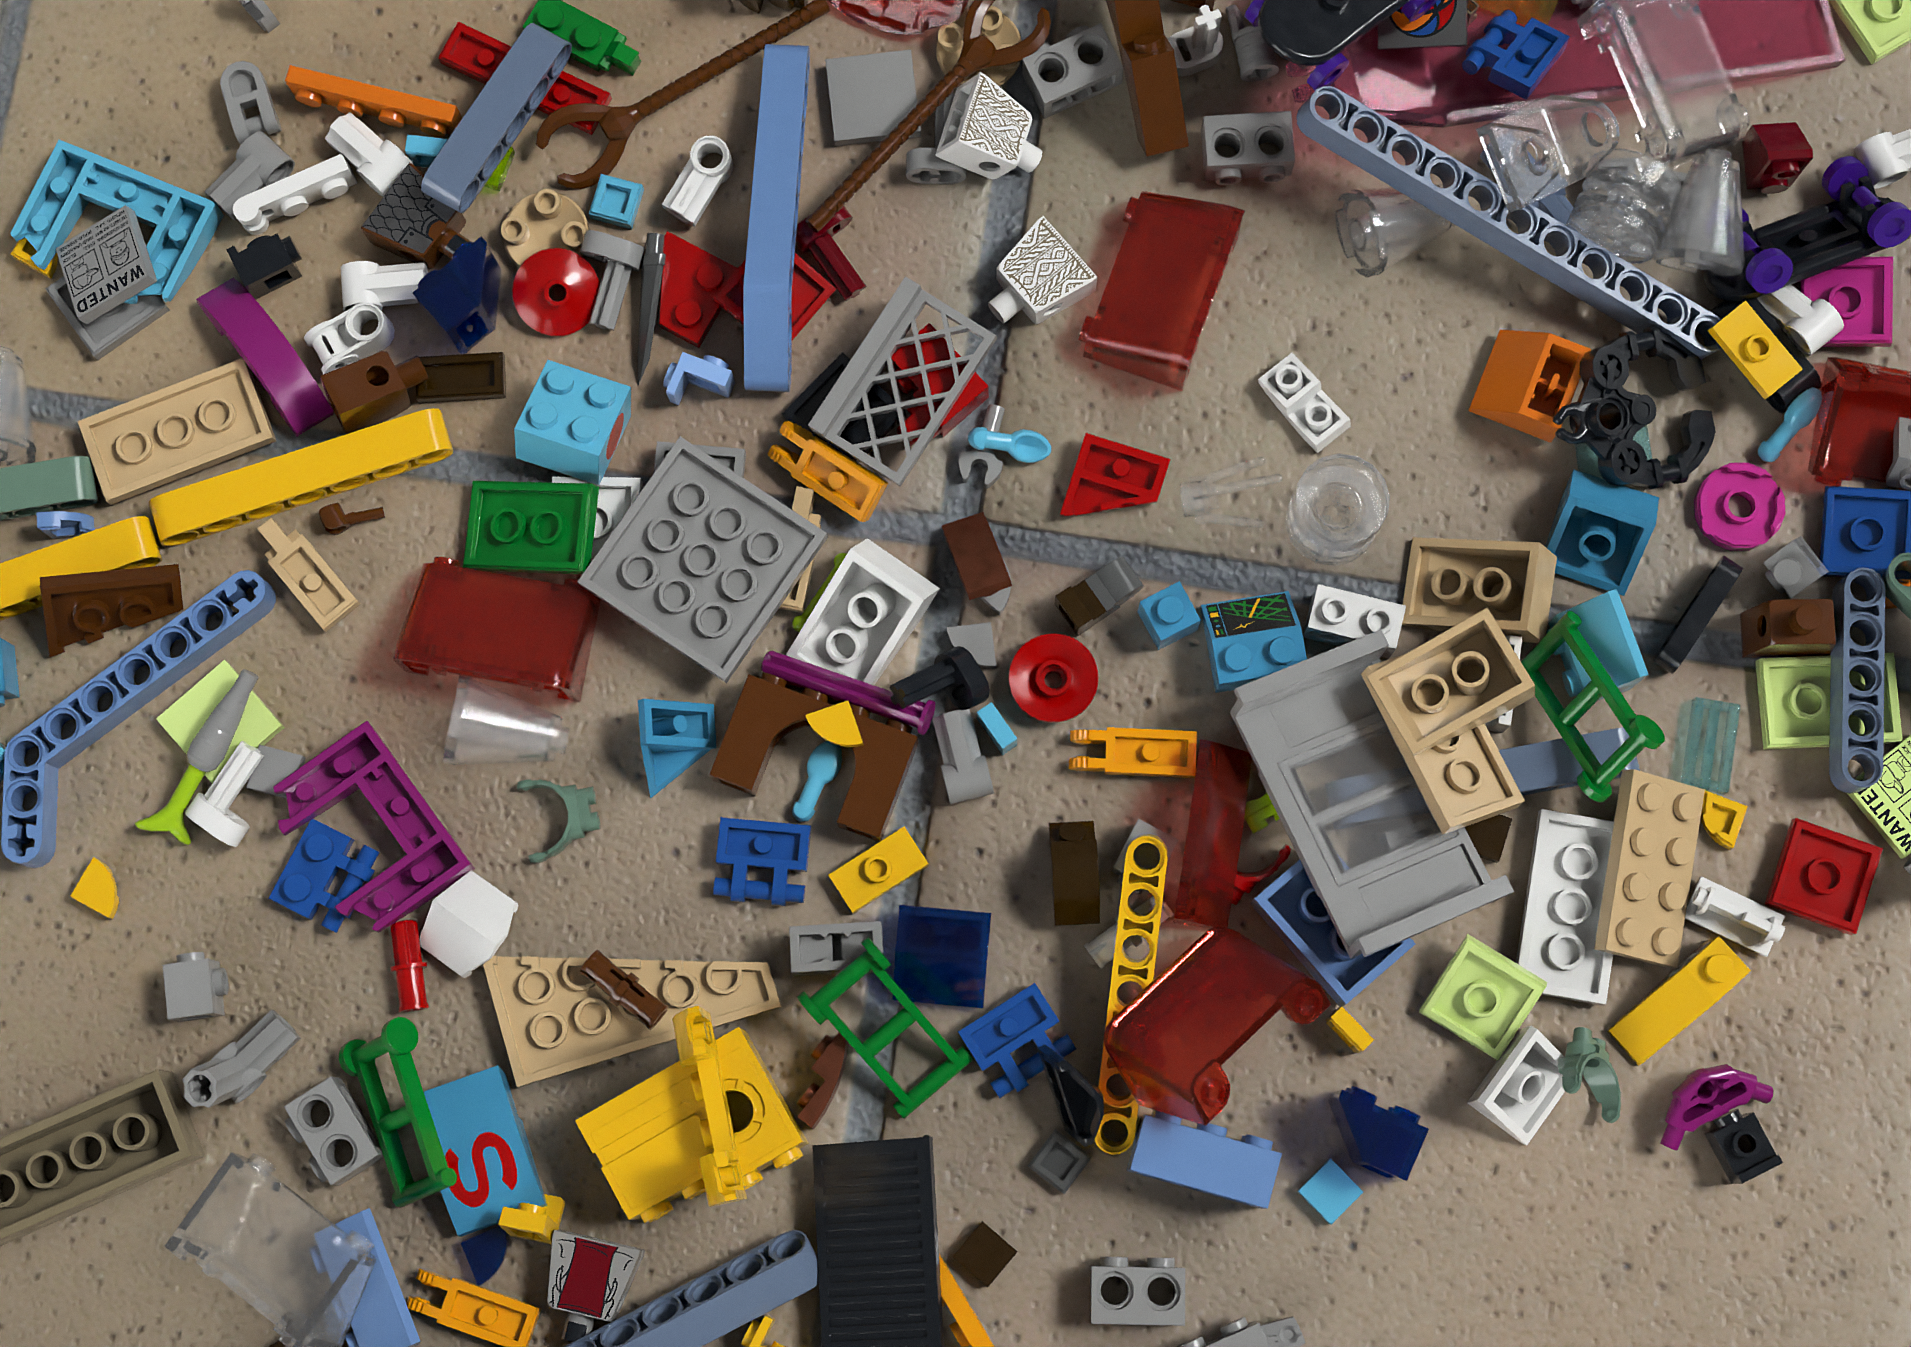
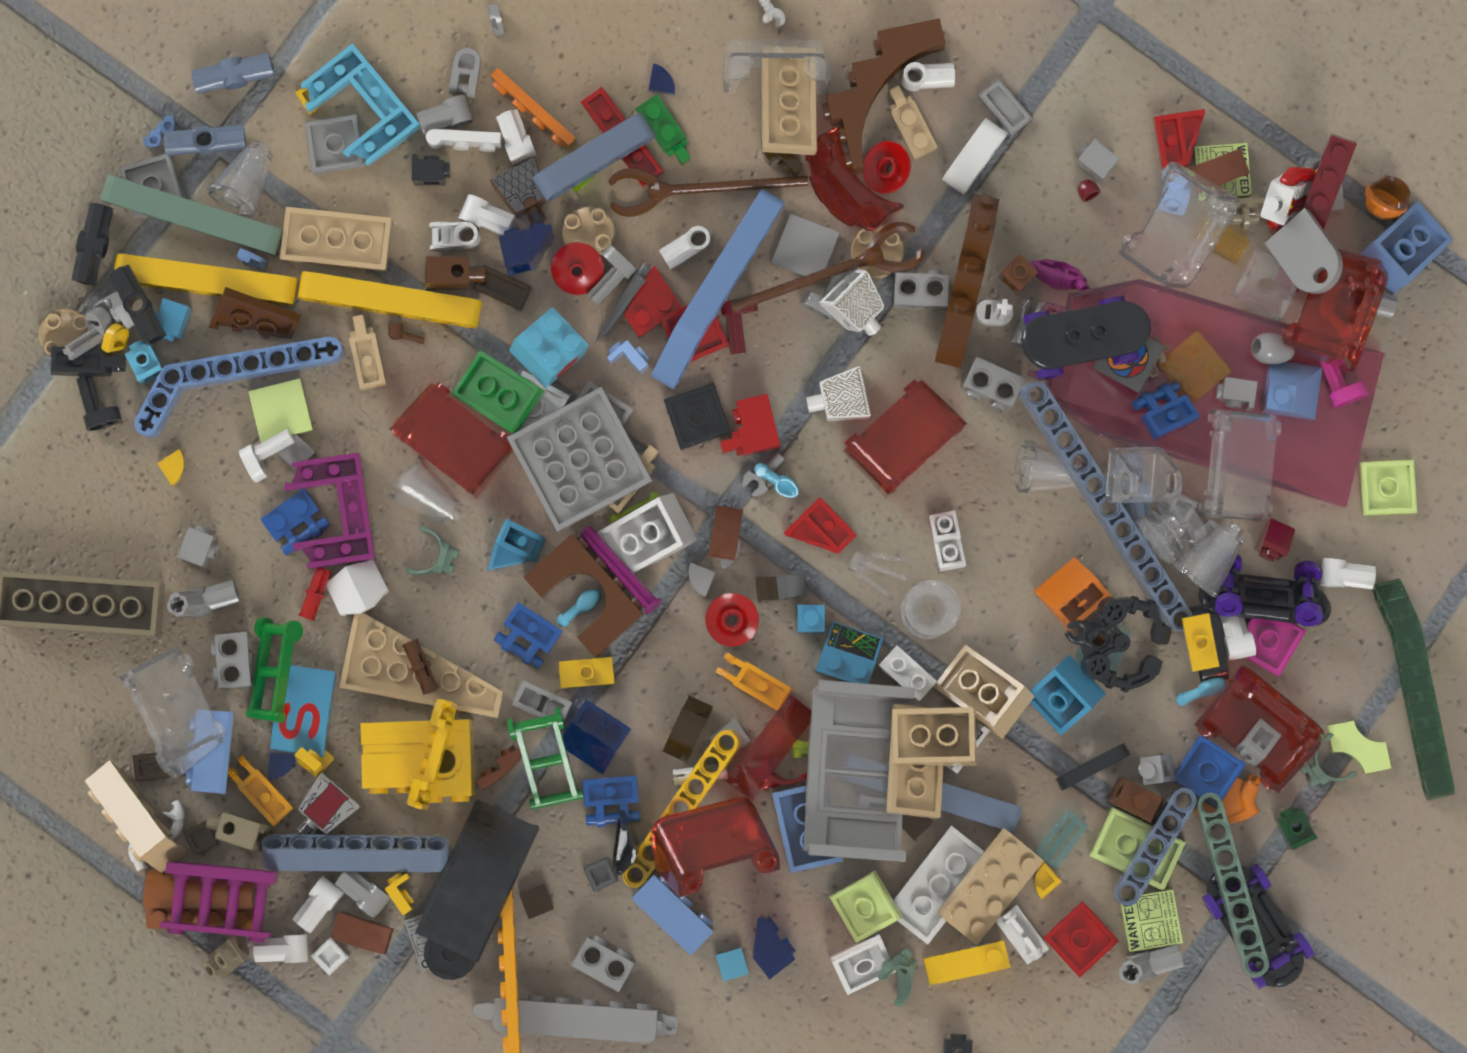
camera: 25 degrees right, 5 degrees up
(106, 264) = (343, 129): light grey tile -> none
(204, 755) = (264, 426): light grey piece -> none
(267, 355) = (404, 220): magenta slope -> none
(423, 149) = (548, 153): medium azure tile -> none
(616, 201) = (636, 233): medium azure tile -> none
(829, 472) = (671, 445): light orange hinge -> none
(836, 725) = (603, 586): yellow tile -> none
(871, 359) = (724, 398): light grey fence -> none
(952, 671) = (680, 588): black piece -> none
(964, 767) = (659, 642): light grey piece -> none
(997, 728) = (687, 629): medium azure tile -> none
(1349, 1030) = (786, 887): yellow tile -> none
(1610, 638) = (1025, 756): medium azure slope -> none
(1642, 730) = (1018, 814): green piece -> none
(1708, 1095) = (954, 1019): magenta piece -> none
(1725, 528) = (1165, 720): dark pink tile -> none

